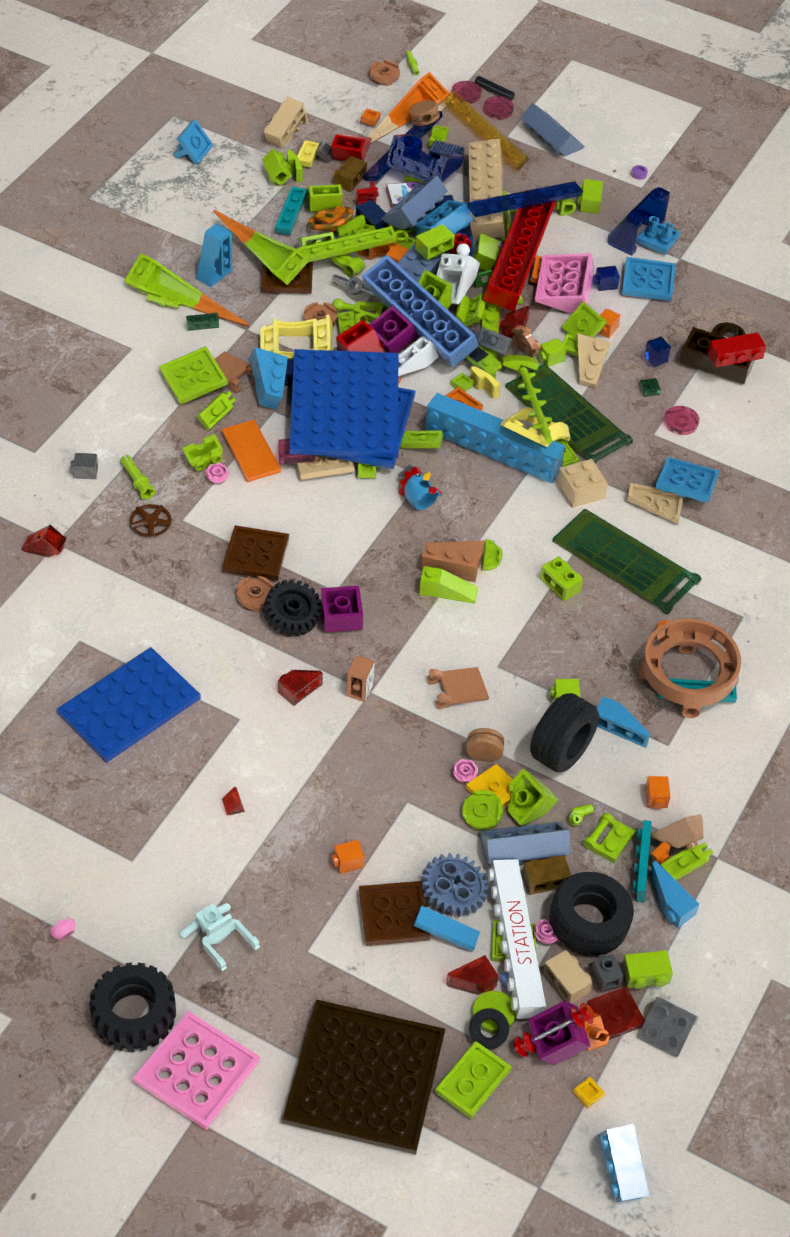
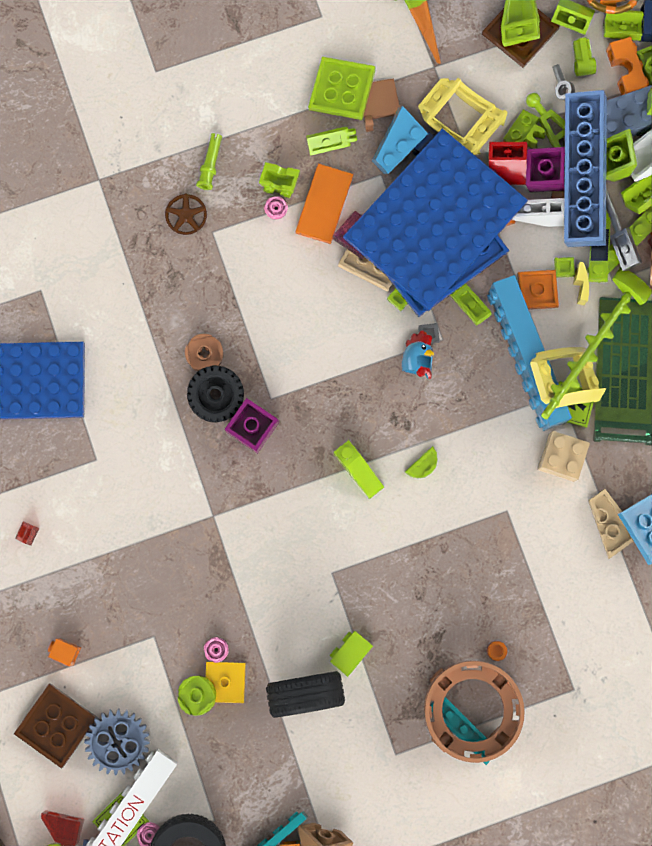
camera: 45 degrees right, 30 degrees up
(44, 542) = (84, 175): clear red slope -> none
(85, 466) = (178, 119): flat silver brick -> none
(202, 321) = (401, 31): clear green piece -> none
(256, 552) = (238, 313): reddish brown plate -> none
(299, 684) = (159, 468): clear red slope -> none
(314, 310) = (513, 93): nougat plate -> none
(349, 244) = (593, 41): lime plate -> none
(360, 678) = (206, 505): nougat brick -> none
(446, 928) = (78, 773): dark azure tile -> none
(457, 558) = (386, 448): nougat wedge -> none
(459, 686) = (285, 569): nougat flag -> none
(485, 744) = (246, 643): medium nougat head -> none
(526, 842) = (201, 749): sand blue slope -> none
(529, 798) = (238, 717): lime slope -> none
(545, 874) = (192, 790): pearl gold brick -> none
(561, 578) = (456, 536): lime brick -> none
(579, 812) = (266, 757): lime arm -> none
(614, 842) = (273, 803): lime plate -> none
(620, 722) = (372, 700): dark azure slope -> none
(625, 559) = (529, 556): clear green flag -> none
(657, 792) = (341, 793): orange brick -> none

